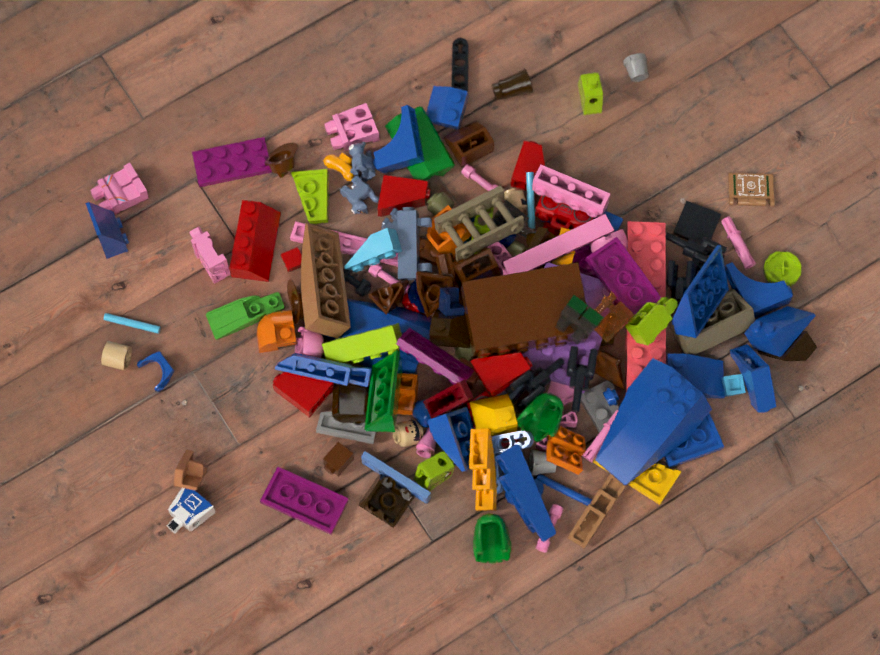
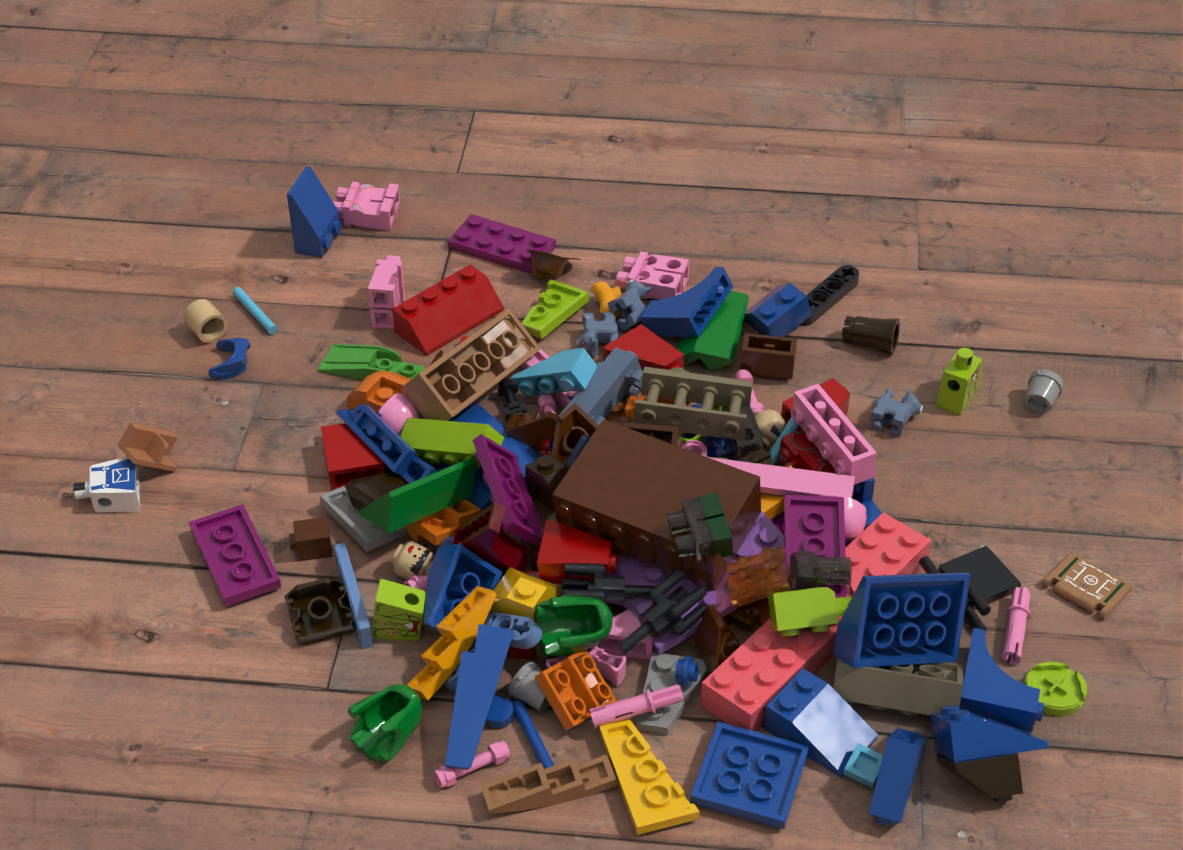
camera: 40 degrees right, 25 degrees down
(569, 138) = (893, 412): none -> sand blue animal
(639, 295) = (810, 571): none -> clear smoke piece
(651, 421) = (709, 724): blue wedge -> none

